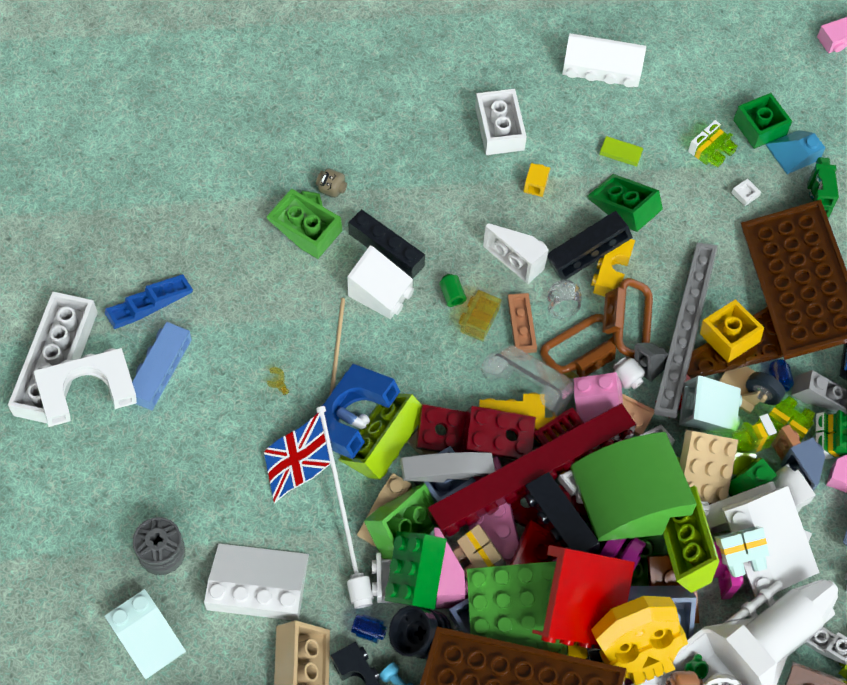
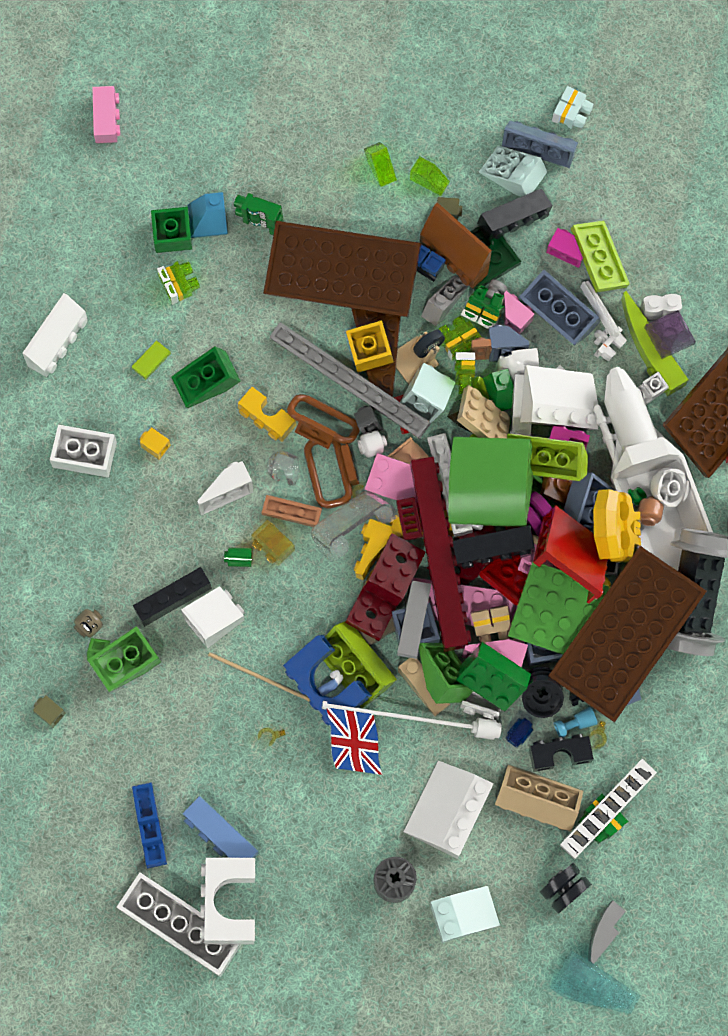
camera: 70 degrees left, 10 degrees up
(232, 179) = (48, 711): none -> olive brick
(589, 245) = (244, 426): black brick -> none
(743, 547) = (566, 420): light aqua hips -> none
(746, 192) = (235, 275): white plate -> none
(781, 371) = (416, 325): clear blue brick -> none

